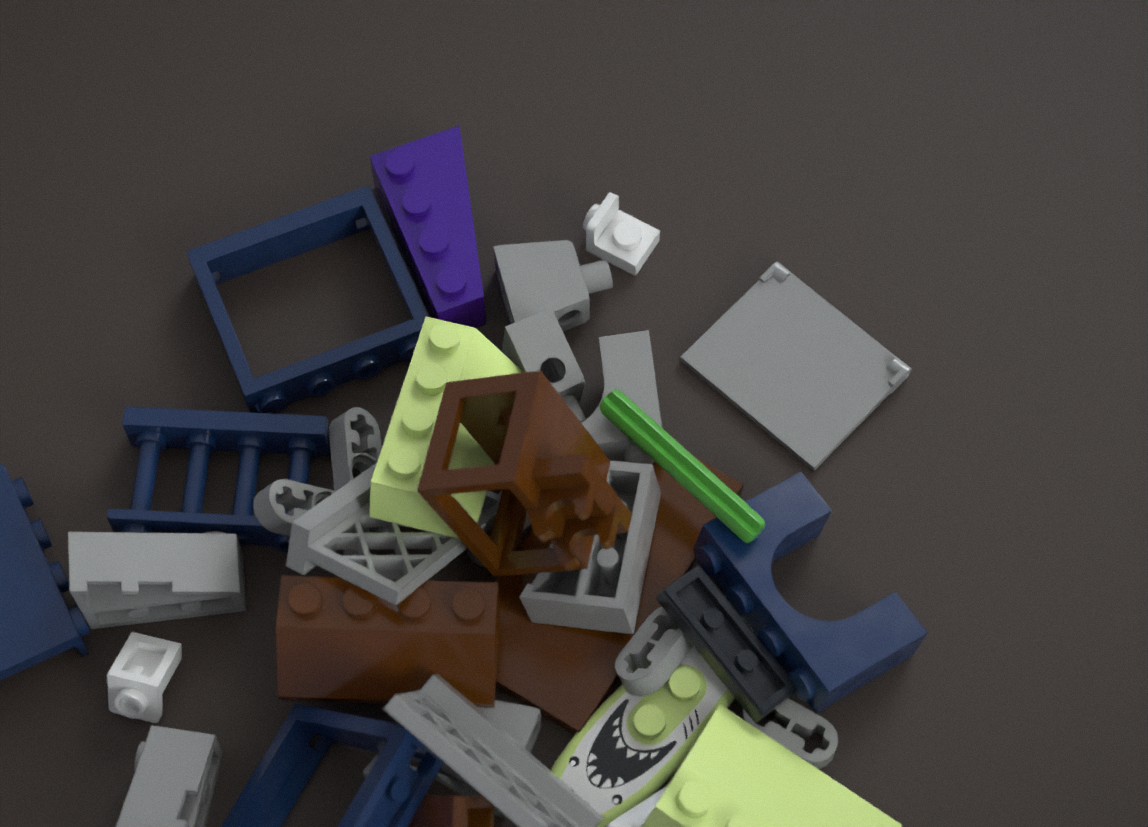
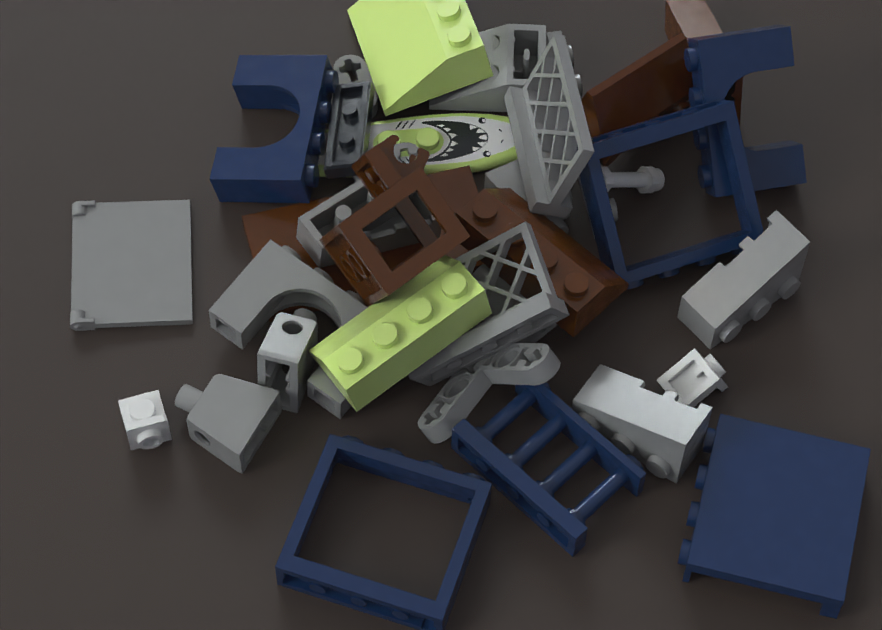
camera: 140 degrees left, 5 degrees down
(432, 218) = (250, 521): dark purple wedge -> none
(682, 466) = (280, 211): bright green axle -> none

